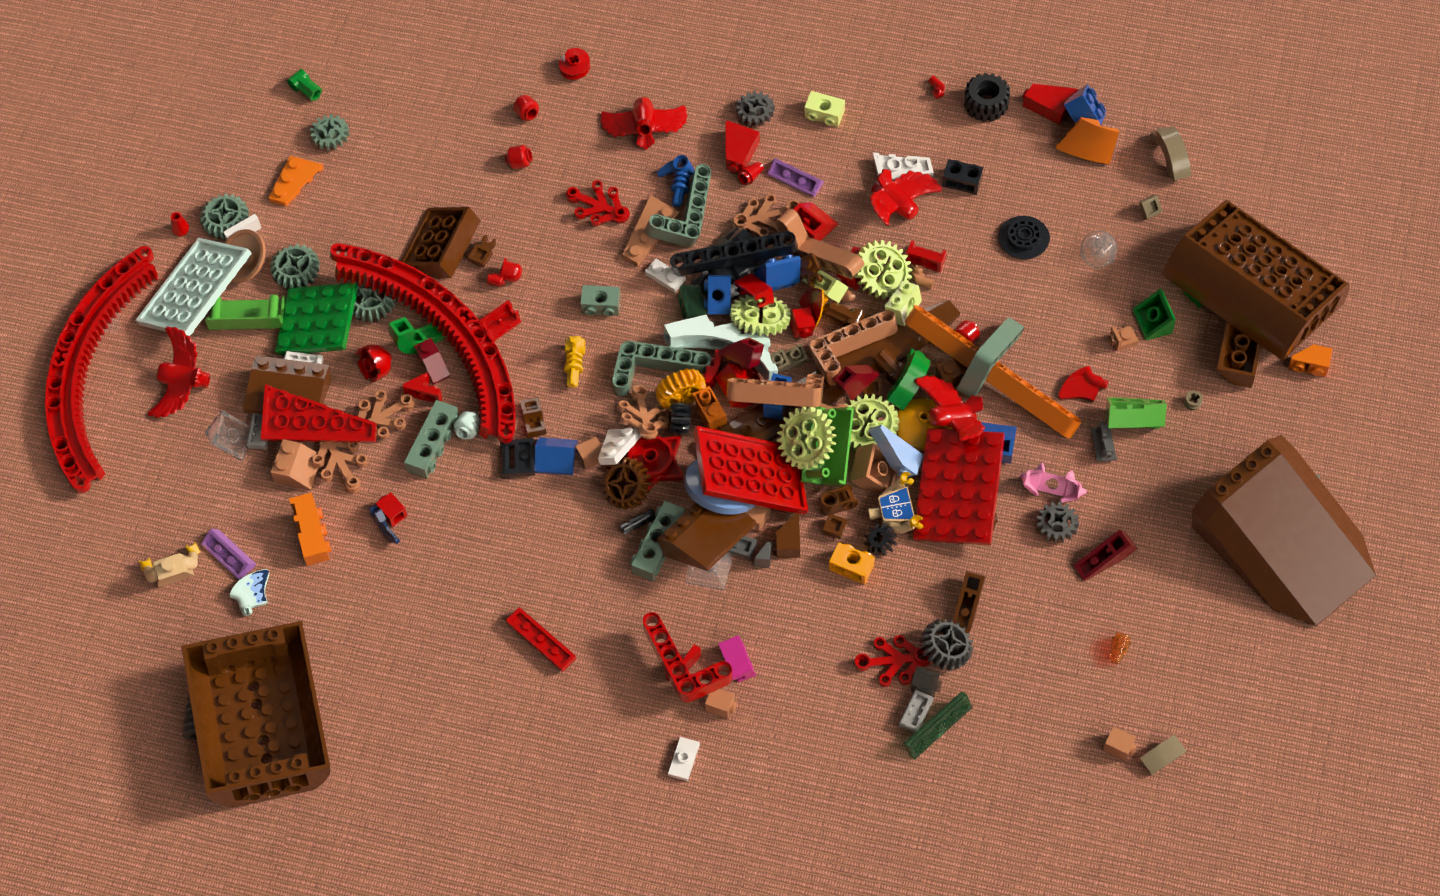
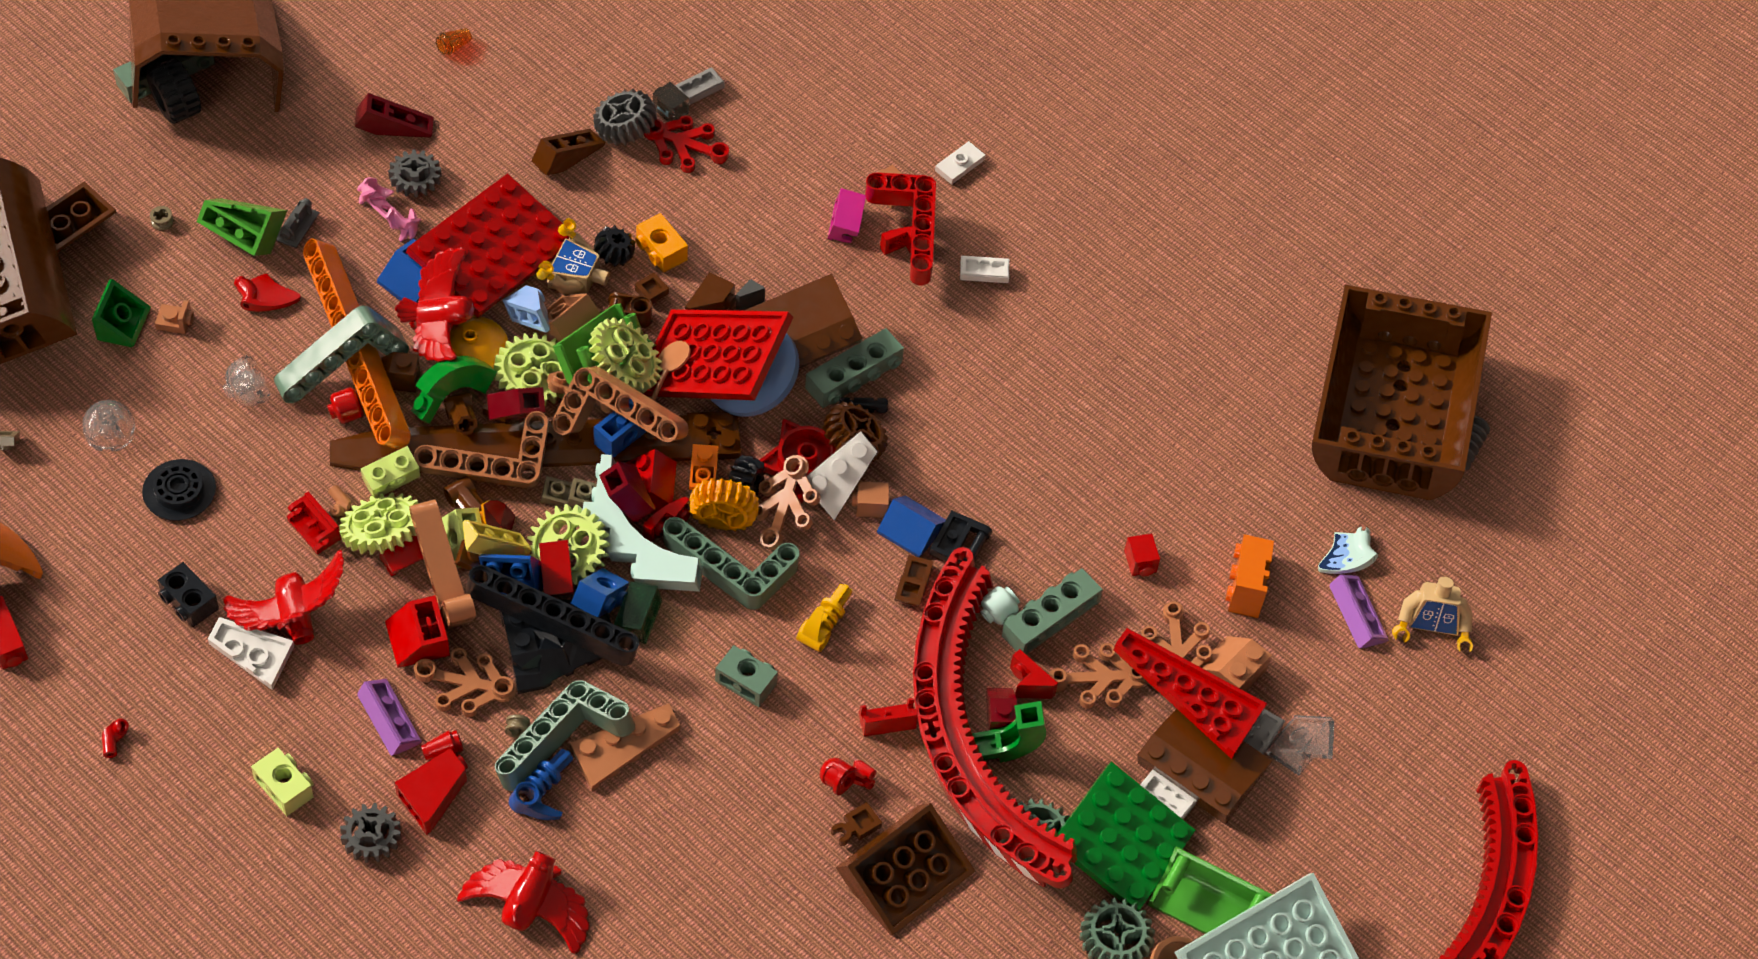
camera: 160 degrees left, 5 degrees down
(179, 374) = (1335, 846): red animal -> none
(374, 362) = (1074, 739): red cylinder -> none
(379, 519) = (1160, 542): dark blue piece -> none
(518, 157) = (731, 934): red head -> none
(541, 639) = (1044, 338): red plate -> none
(599, 205) = (666, 808): red plant -> none
(613, 672) = (984, 269): none -> white plate
(664, 275) = (646, 675): white plate -> none
(716, 204) = (516, 725): none -> dark tan bush
(776, 464) = (672, 359): none -> nougat piece
(801, 281) = (493, 540): none -> light yellow slope
(802, 323) = (523, 515): red brick -> none
(938, 725) = (677, 65): clear green plate -> none
(986, 108) = (65, 659): black tyre -> none
(1036, 313) = (246, 383): none -> clear cylinder

